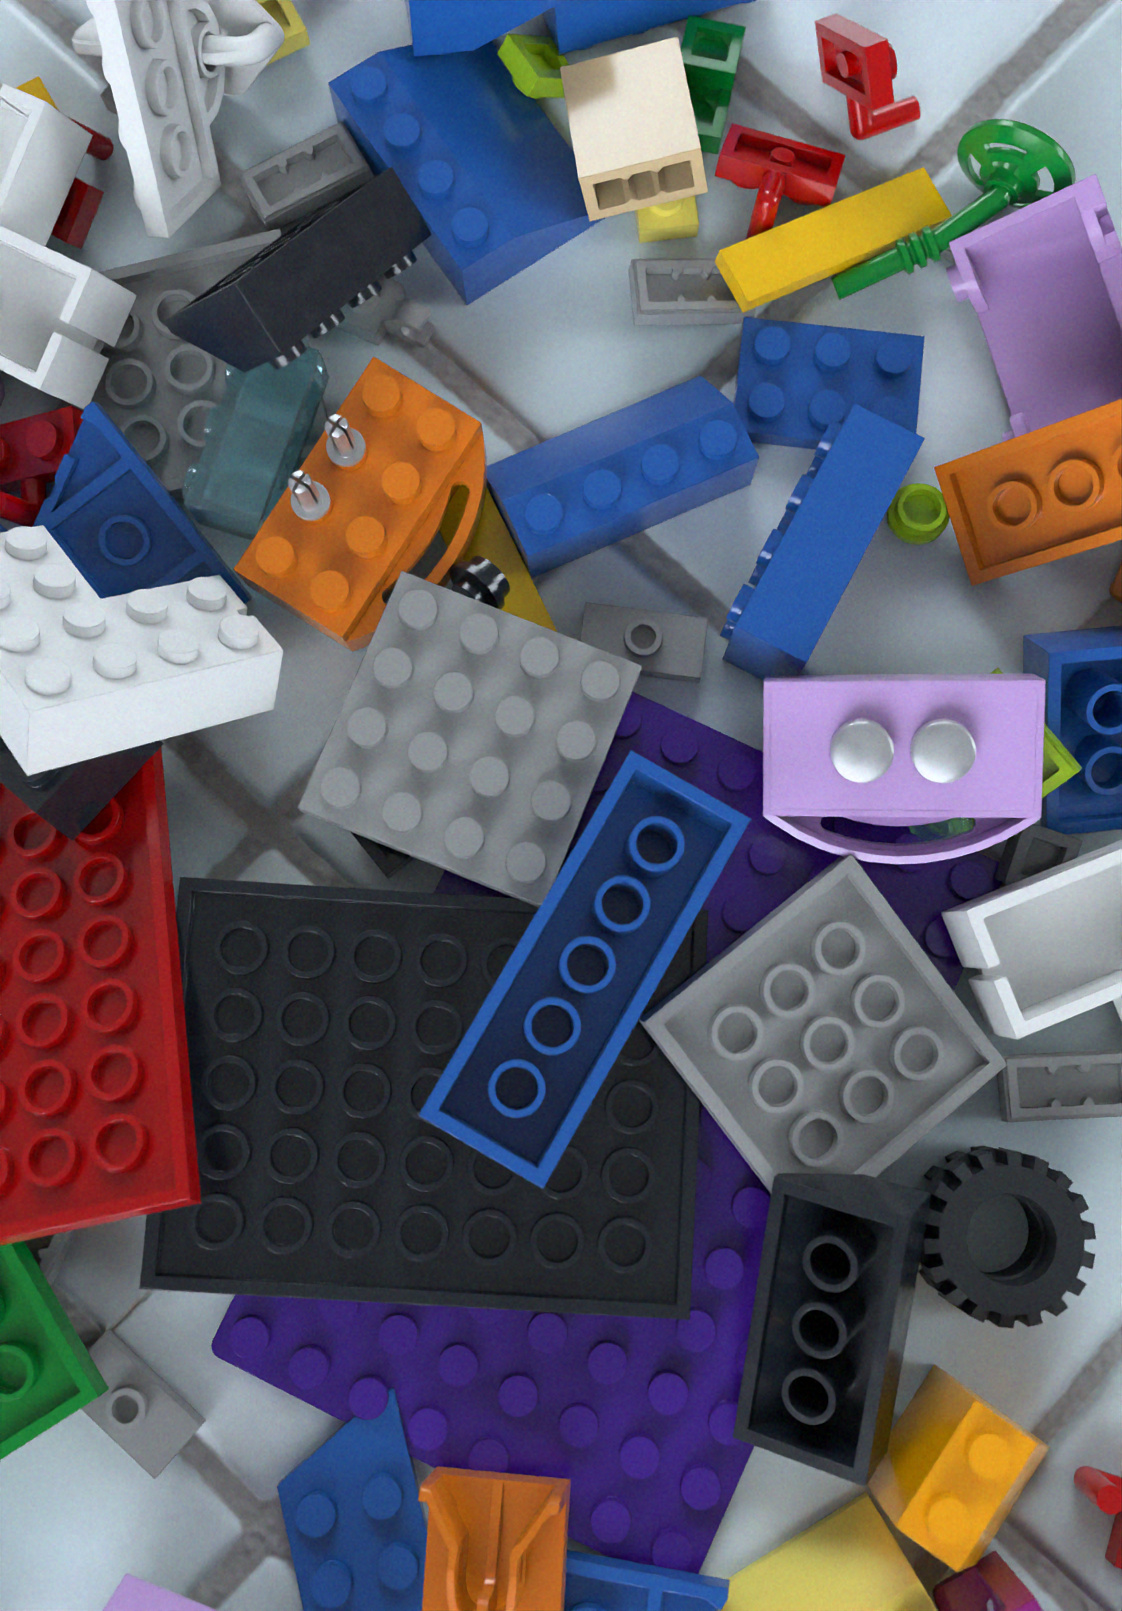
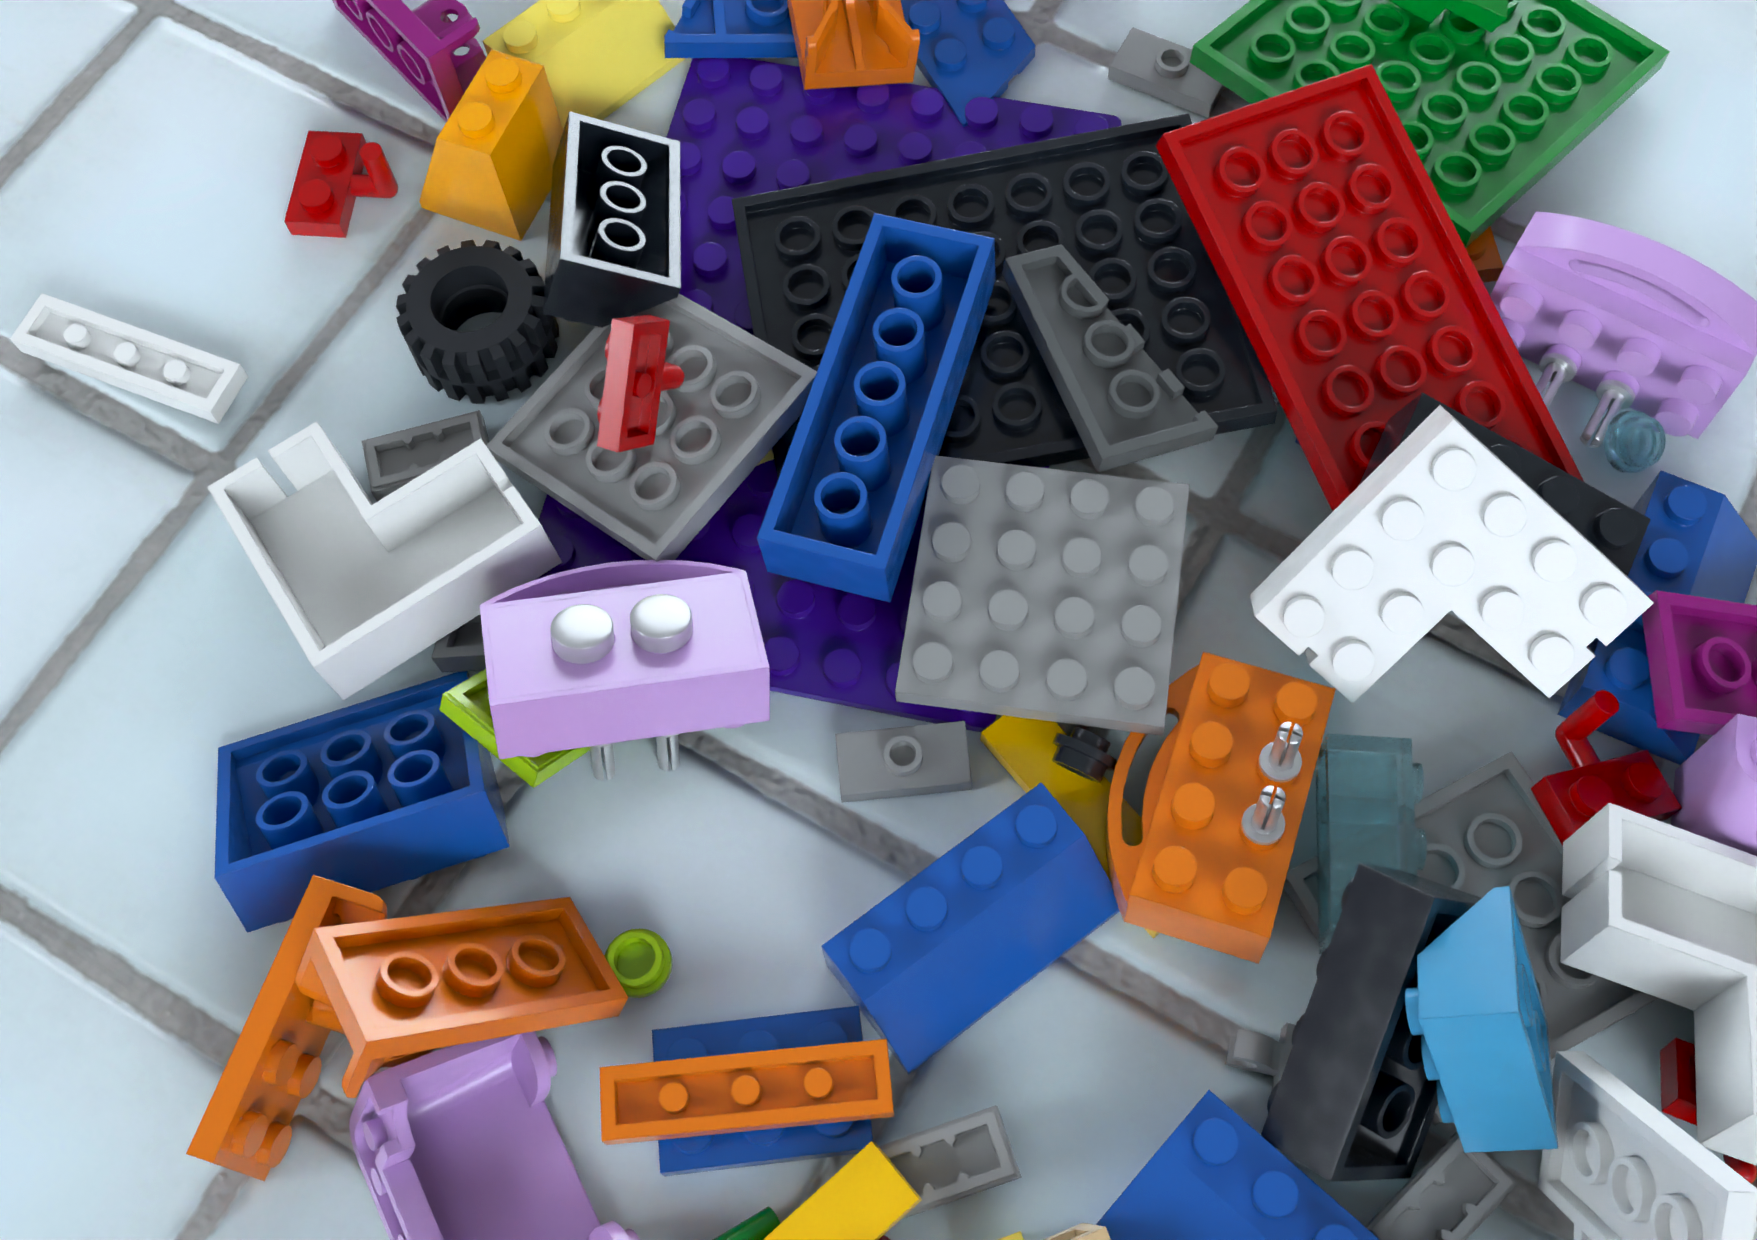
camera: 170 degrees right, 15 degrees down
(121, 518) = (1467, 730): blue wing -> none
(225, 224) = (1485, 1031): none -> dark azure slope
(342, 952) = (1099, 366): none -> dark grey wing
(818, 544) = (736, 867): blue brick -> none
(846, 360) = (745, 1092): none -> orange plate
(847, 1045) = (634, 382): none -> red plate

